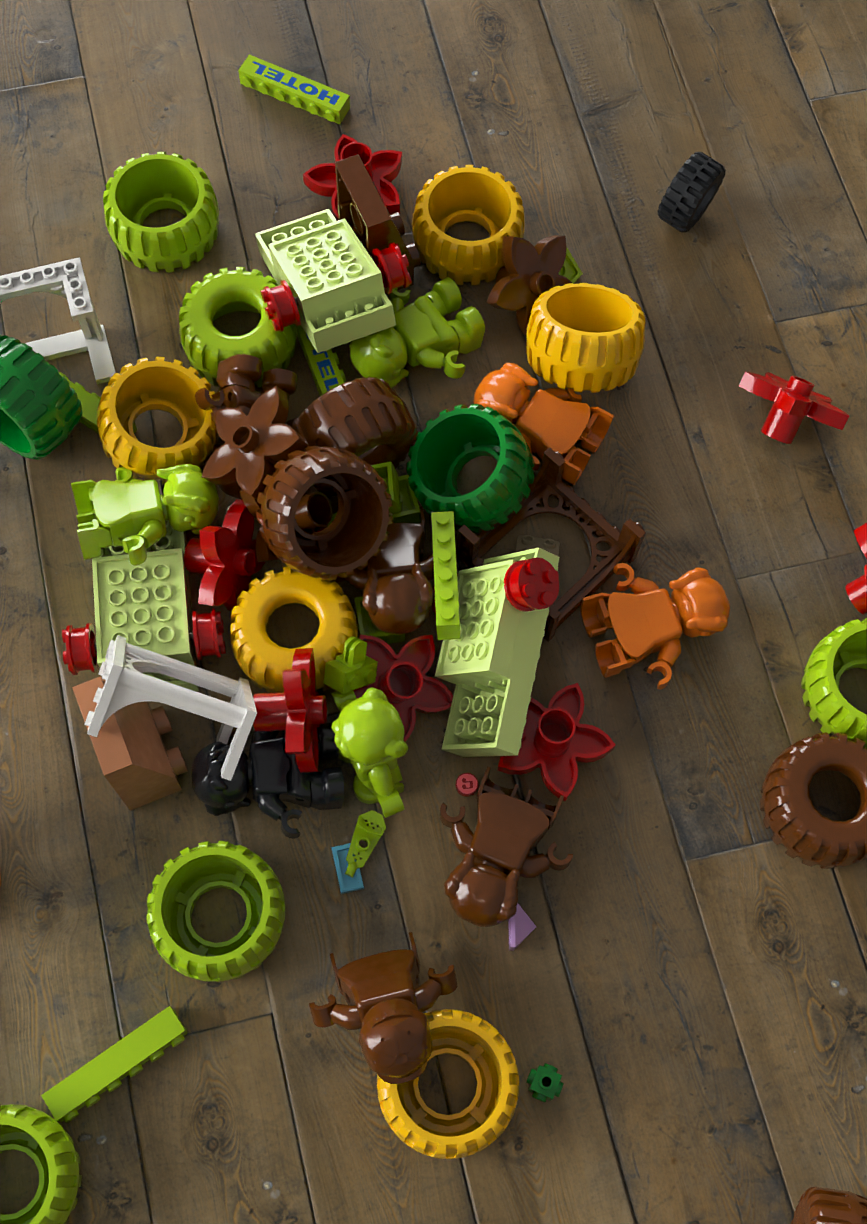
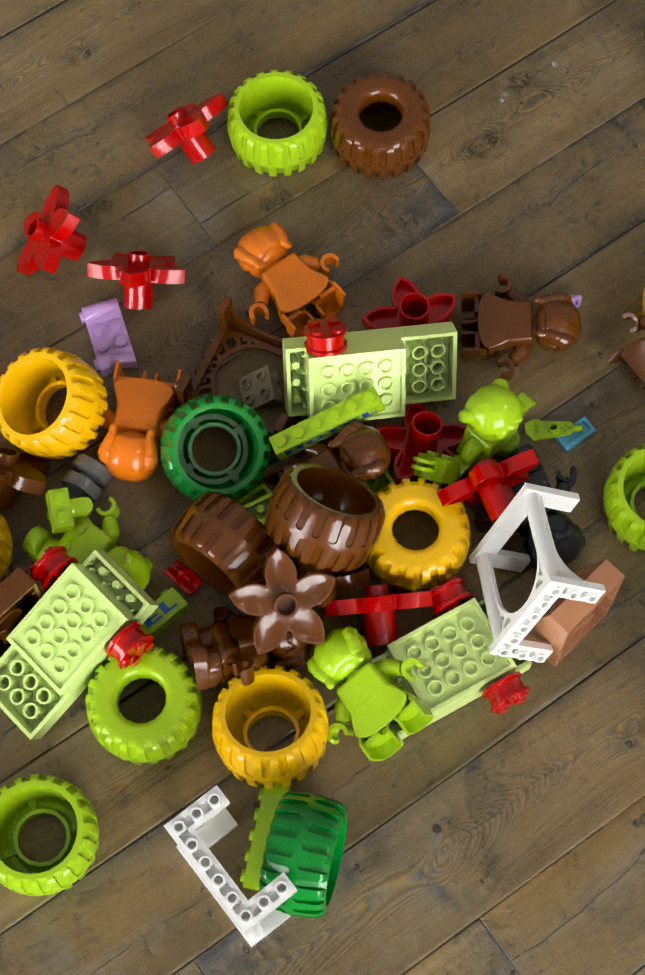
camera: 105 degrees left, 0 degrees up
(460, 311) = (63, 509): none -> lime brick
(466, 784) = (472, 375): tile -> none
(495, 351) = (86, 477): none -> dark grey wheel
(656, 434) = (108, 336): none -> lavender piece
(714, 470) = (137, 274): none -> red plant

